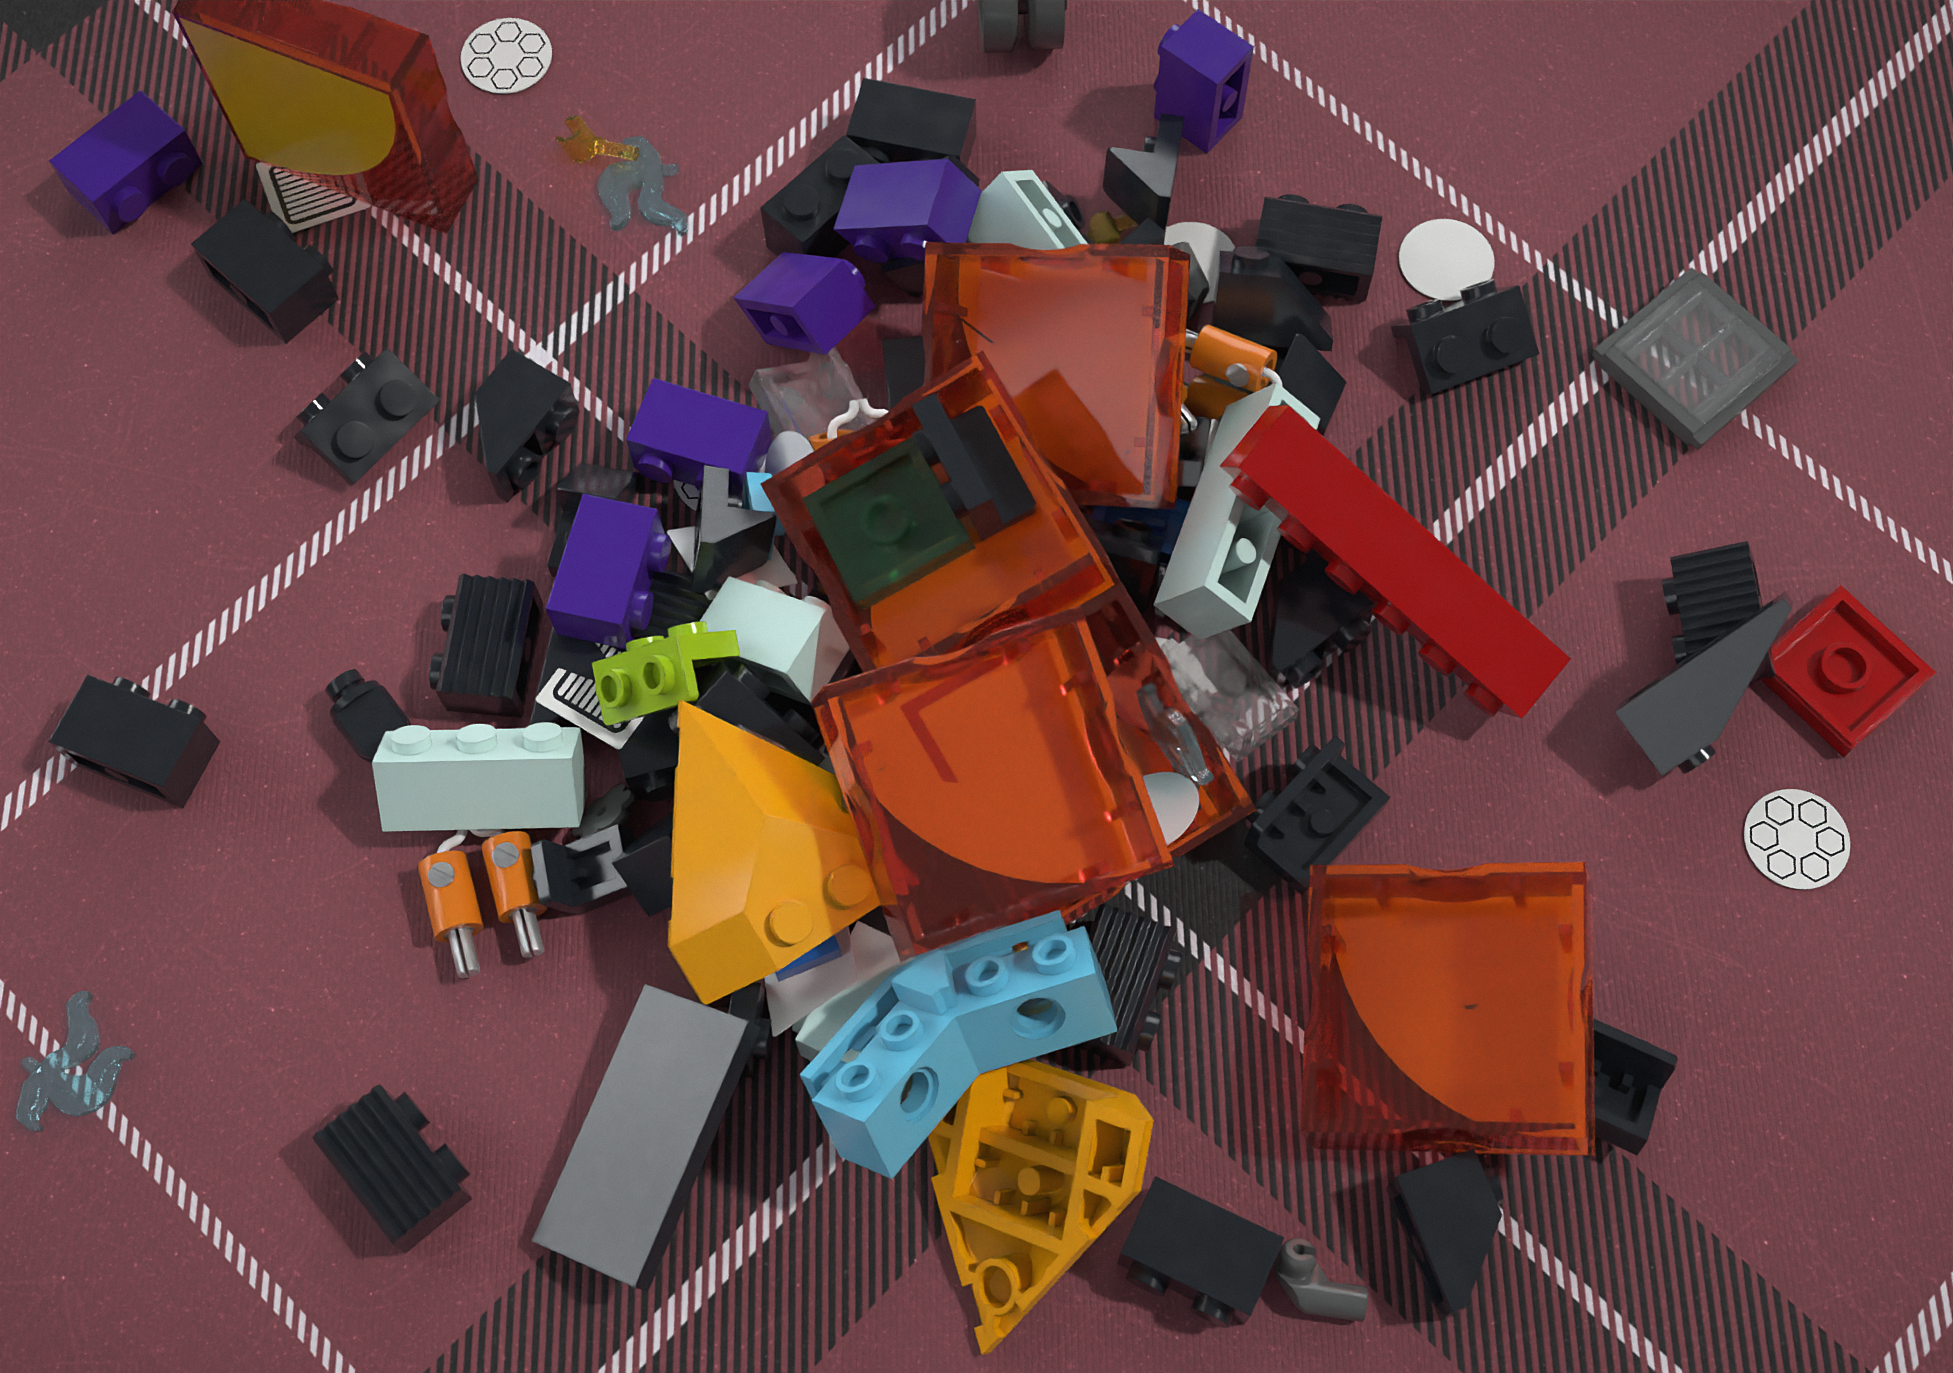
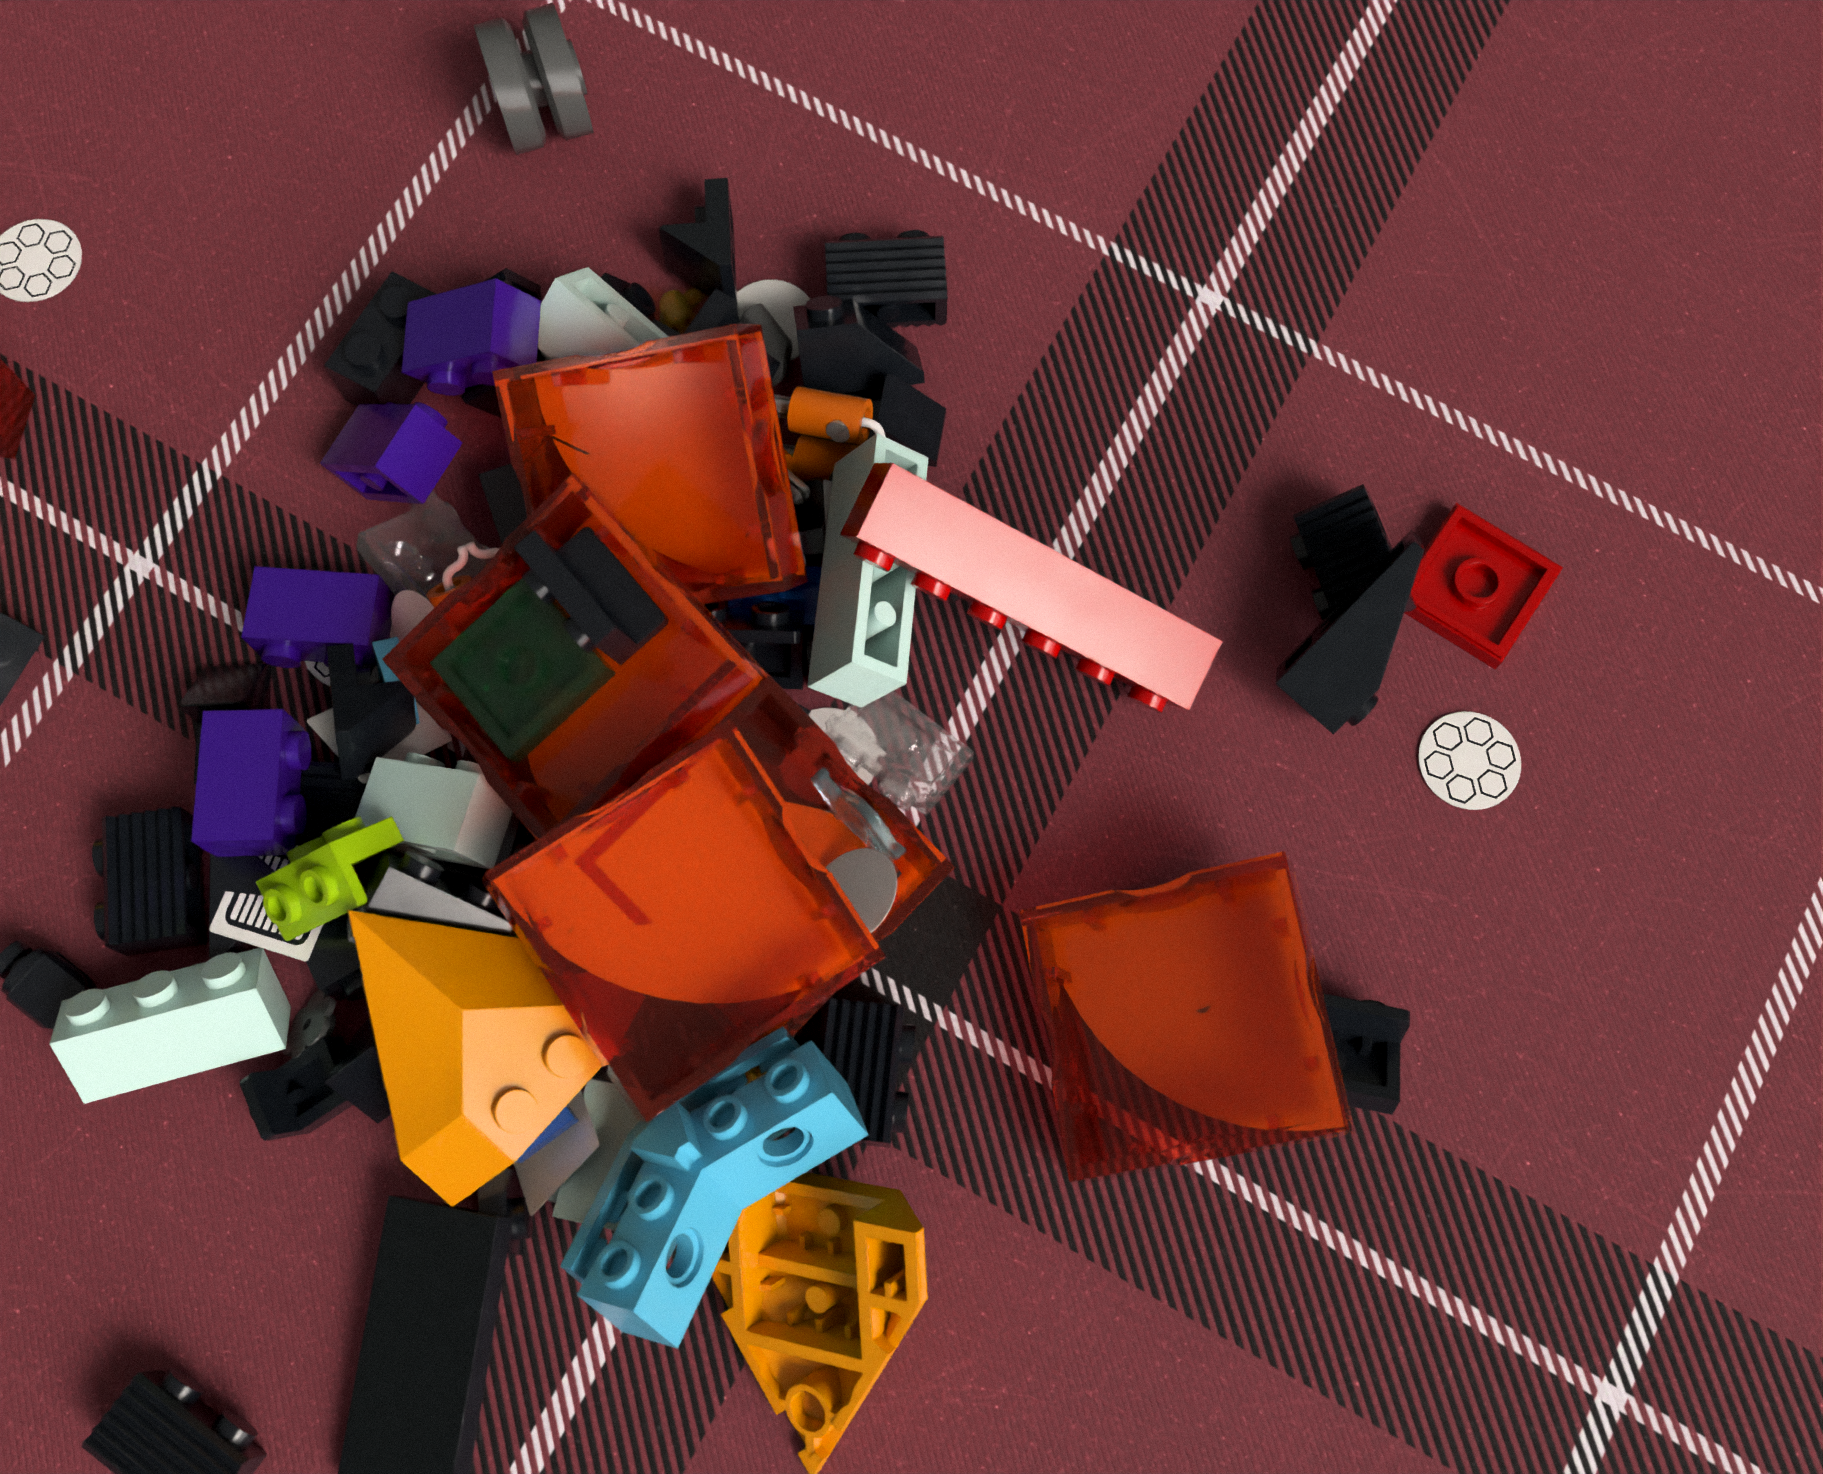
camera: 15 degrees left, 5 degrees up
(453, 900) = (177, 1155): orange piece -> none
(520, 420) = (131, 639): black slope -> none
(585, 144) = (135, 335): clear yellow hand -> none
(646, 172) = (205, 350): clear light blue piece -> none
(911, 123) = (459, 244): black brick -> none
(1199, 1253) = (999, 1324): black brick -> none
(1203, 78) = (737, 135): dark purple brick -> none
(1311, 1289) = (1113, 1326): dark grey arm -> none
(1312, 621) = (965, 661): black slope -> none
(1313, 815) = (1012, 854): black bracket -> none
(1445, 258) = (1014, 263): white sticker -> none
(1449, 1223) = (1232, 1231): black slope -> none
(1468, 336) = (1052, 336): black bracket -> none
(1695, 358) = (1271, 309): clear piece -> none

